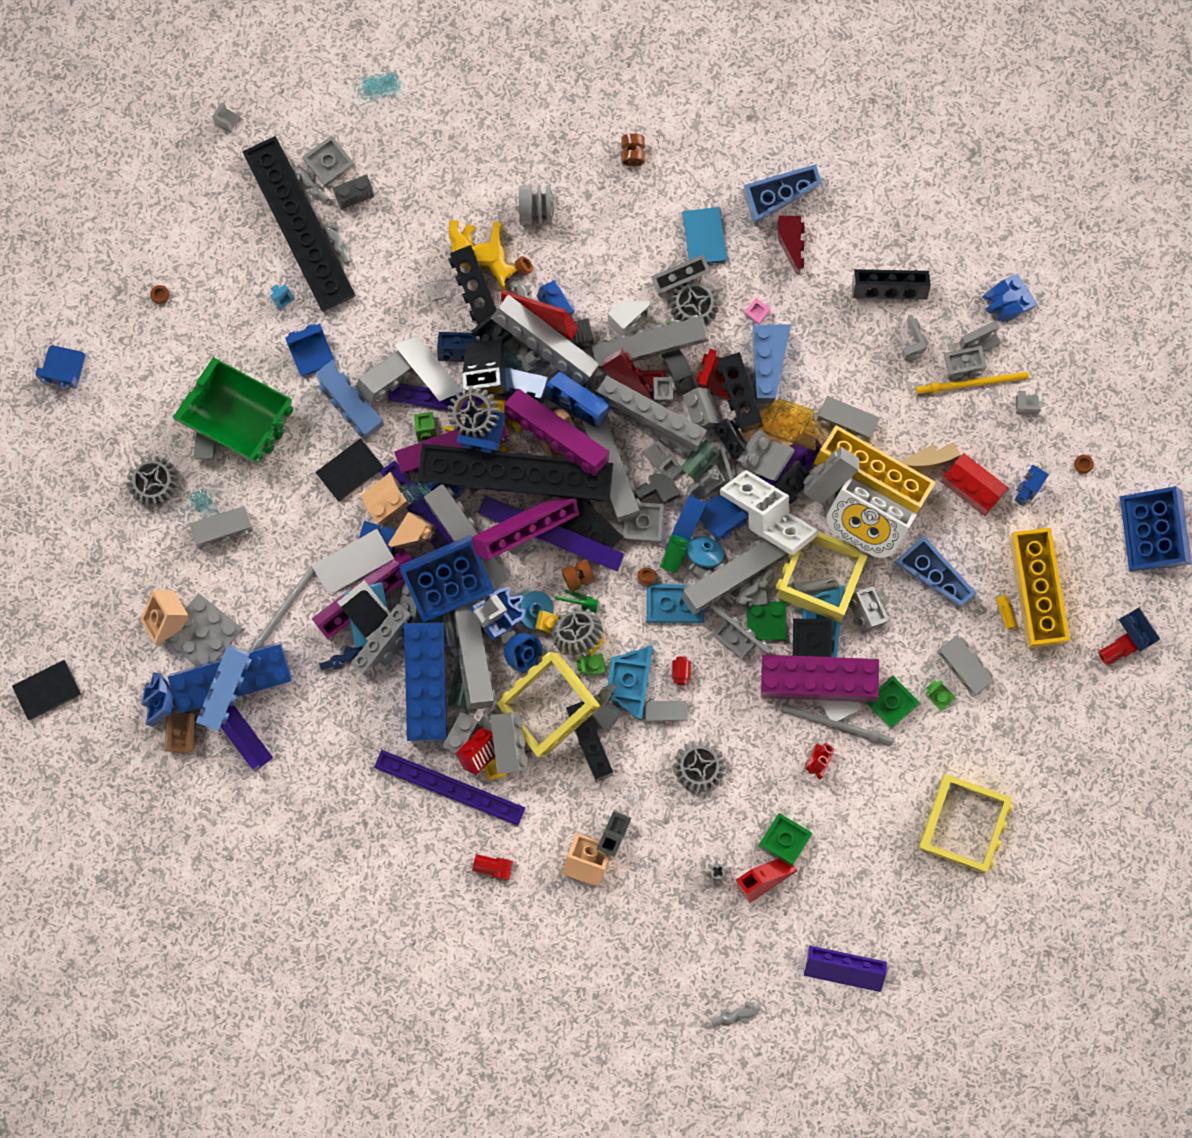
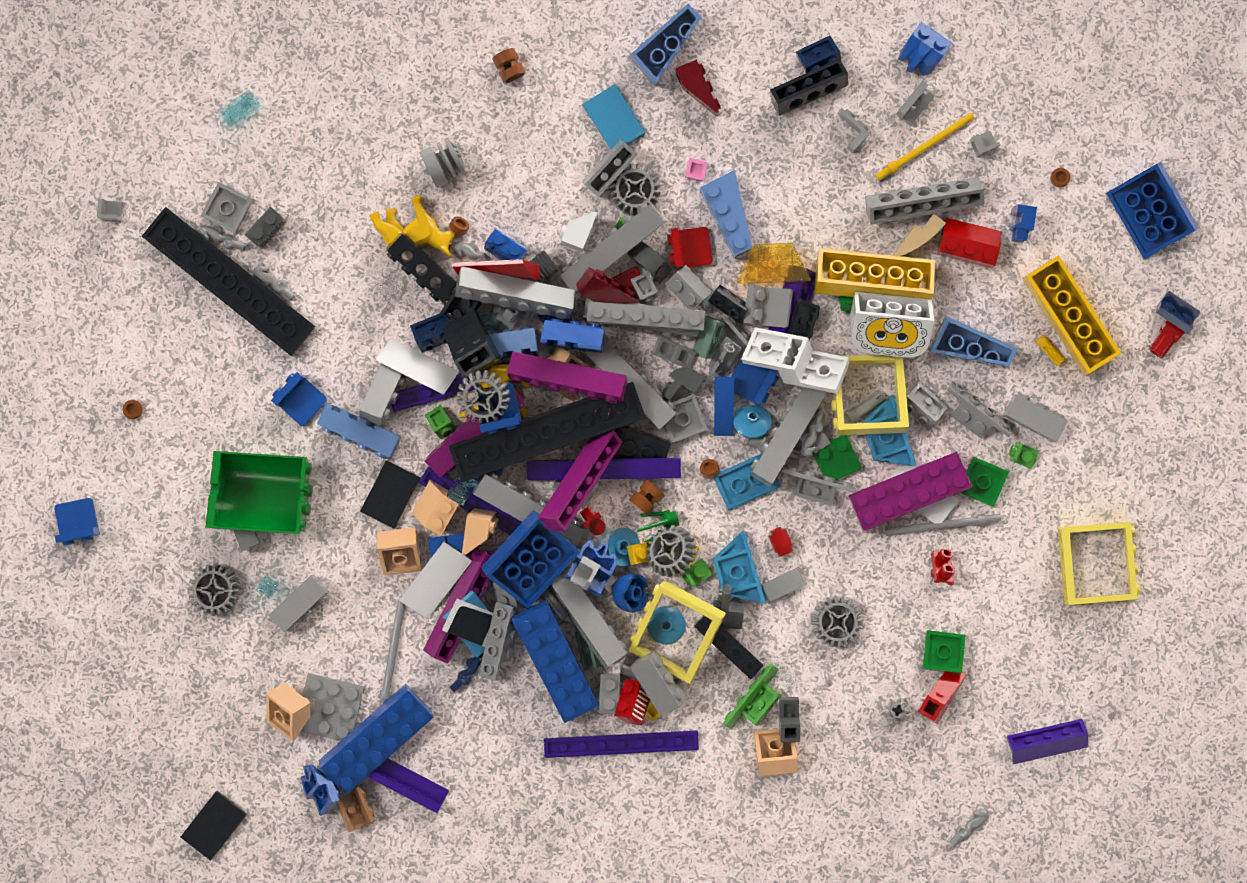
camera: 25 degrees left, 10 degrees up
(222, 688) = (376, 757): medium blue wedge -> none
(281, 296) = (247, 359): dark azure tile -> none
(332, 522) = (399, 551): none -> light nougat slope
(496, 867) = (695, 797): red piece -> none
(519, 572) = (592, 520): none -> red hips
(541, 709) = (677, 625): none -> dark azure dish
(592, 804) = (757, 701): none -> bright green bracket
(674, 553) = (725, 436): green piece -> none
(752, 419) = (740, 275): black brick -> none
(812, 637) = (887, 458): black plate -> none
(831, 475) = (839, 300): light grey brick -> none
(848, 418) = (826, 235): light grey brick -> none
(911, 638) = (975, 414): none -> light grey bracket
(913, 260) = (818, 54): none -> dark blue bracket
(950, 427) = (924, 200): none -> light grey brick
(965, 362) = (910, 130): light grey bracket -> none

